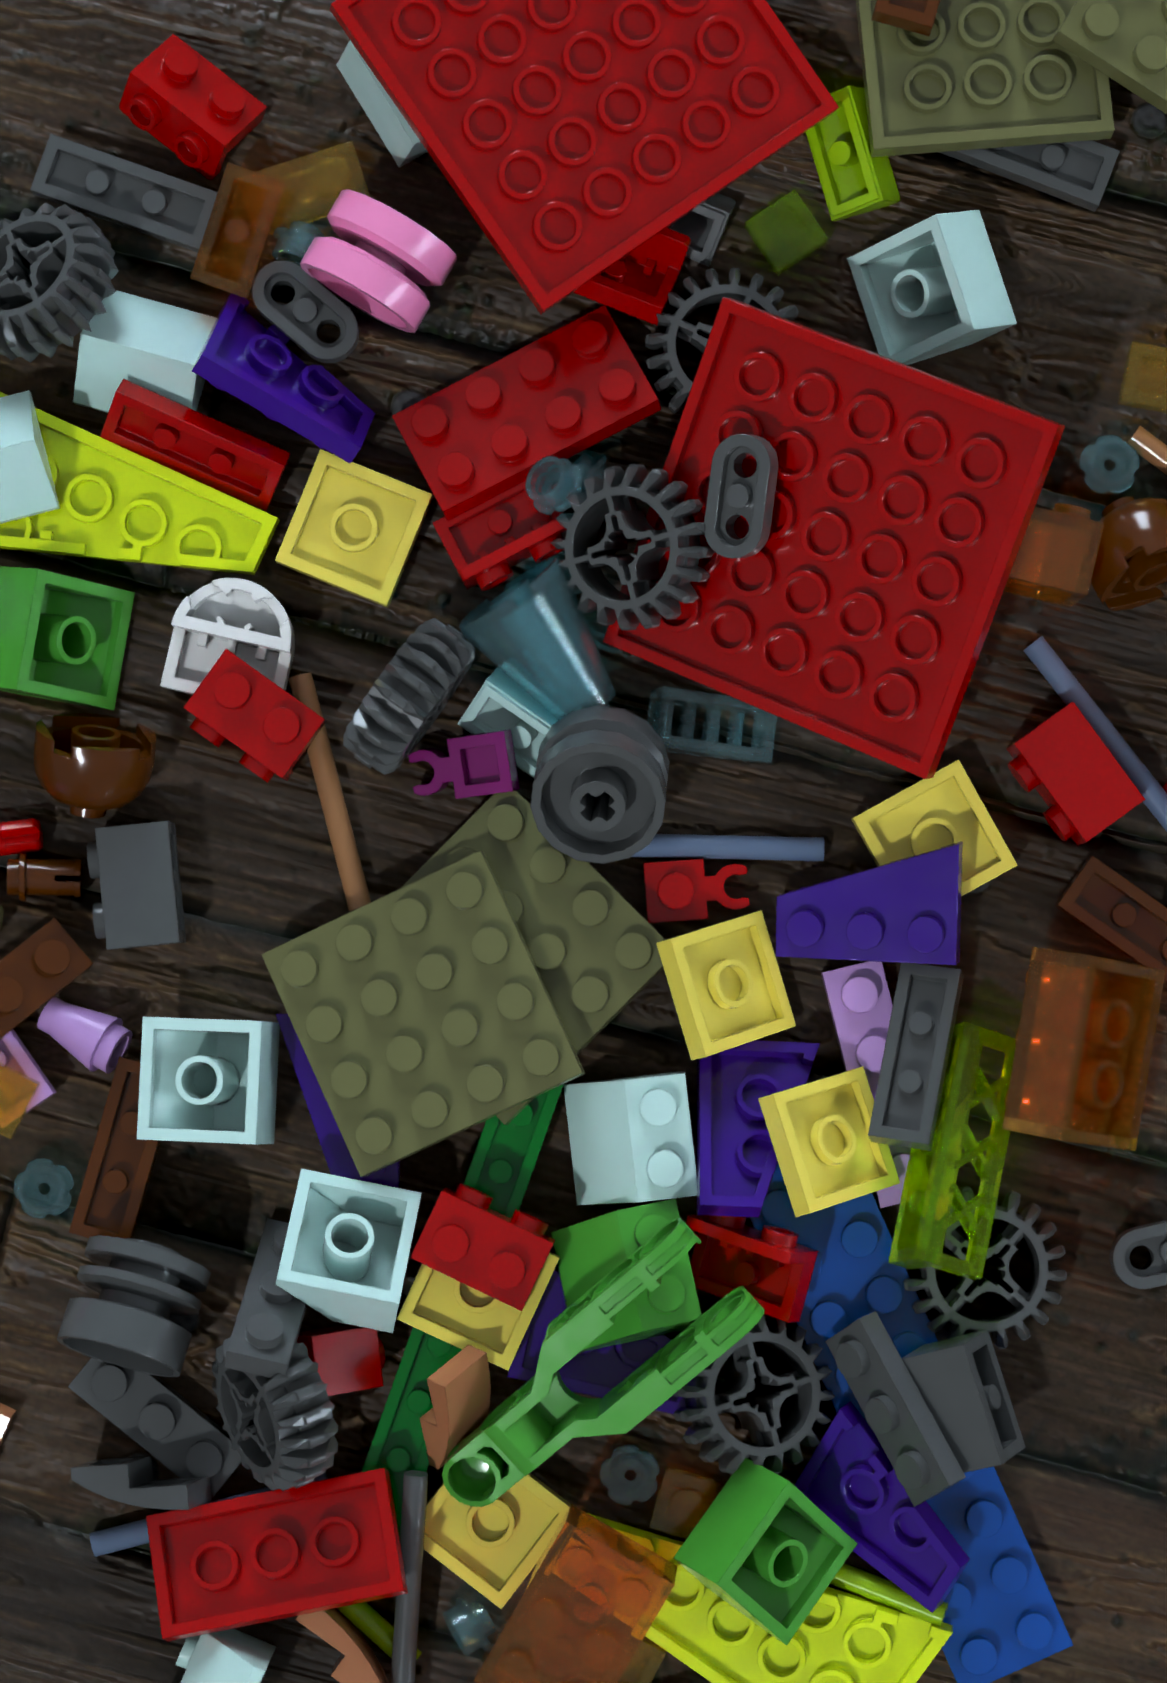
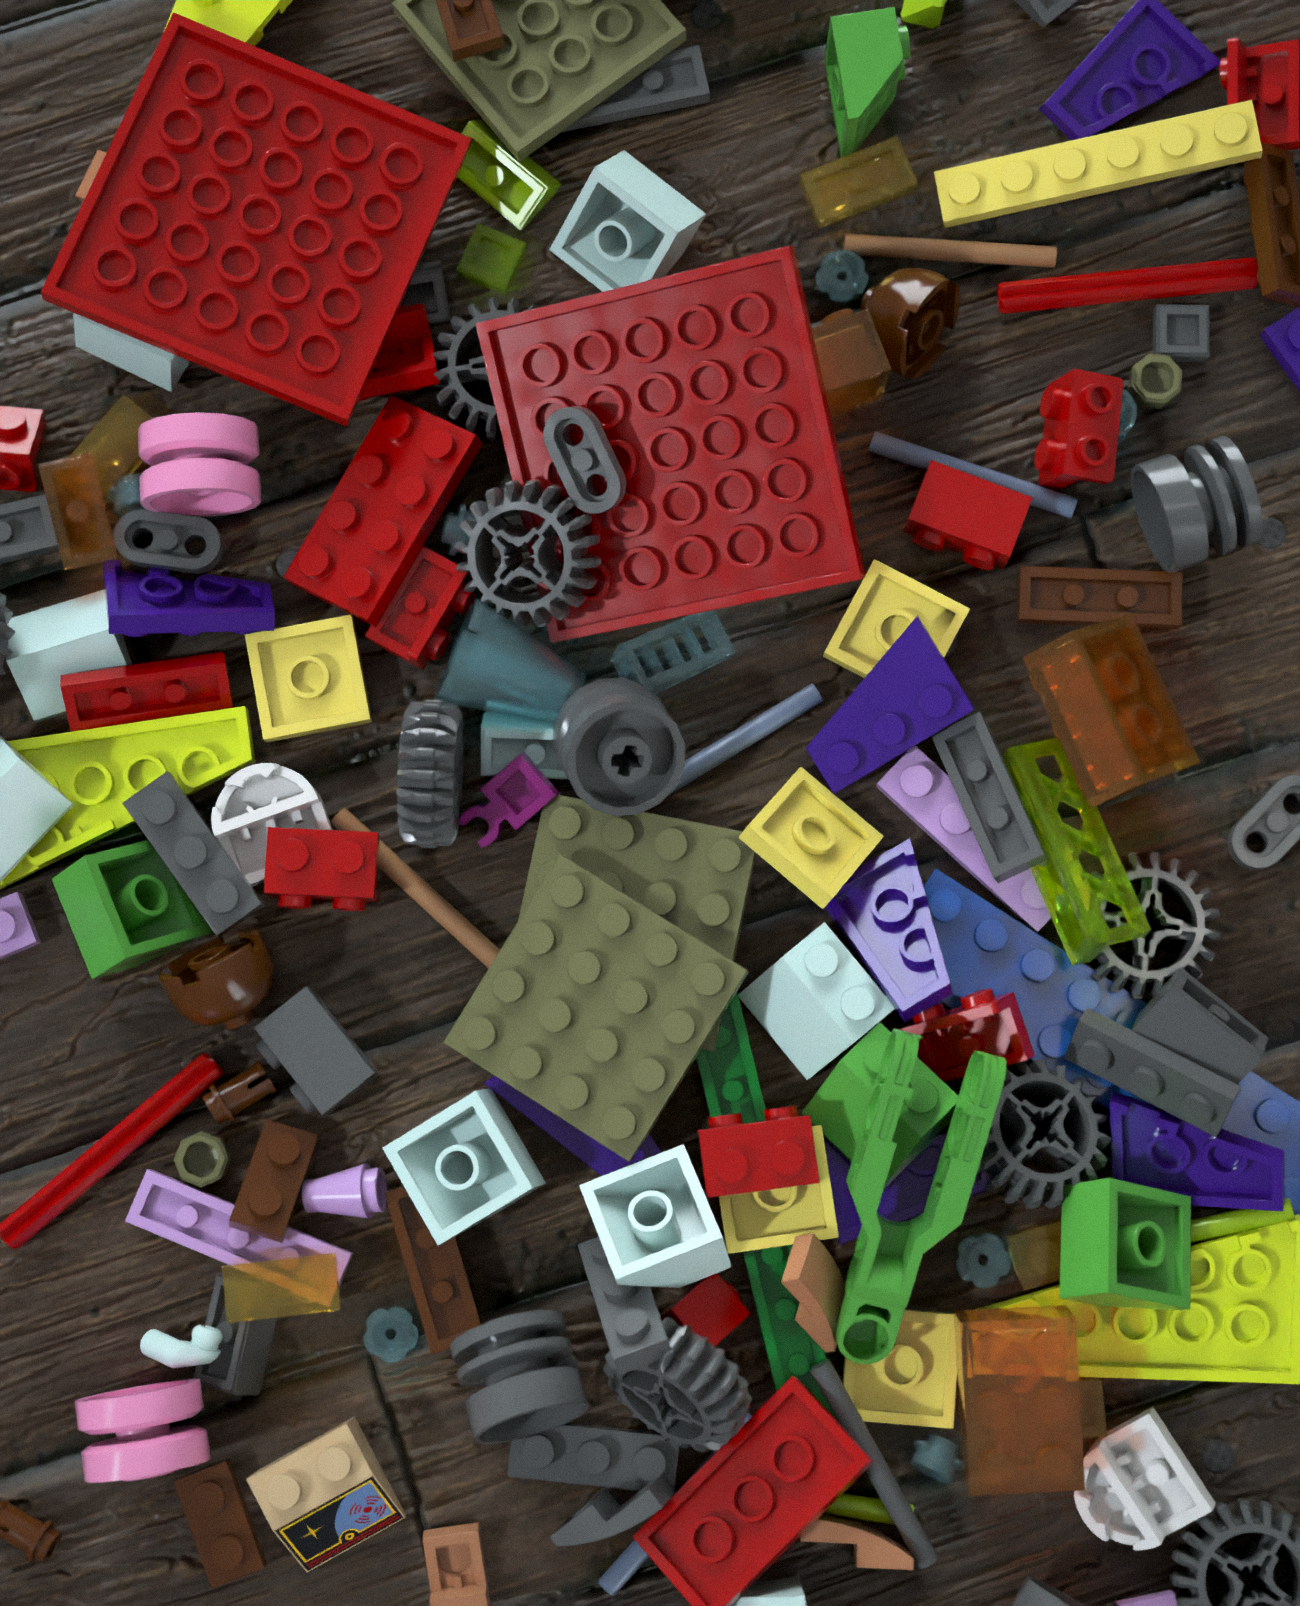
camera: 30 degrees left, 5 degrees down
(141, 628) = (193, 854): none -> dark grey plate
(551, 483) = (435, 546): clear light blue plate -> none
(682, 890) = (732, 791): red plate -> none
(825, 1142) = (964, 904): light yellow plate -> none

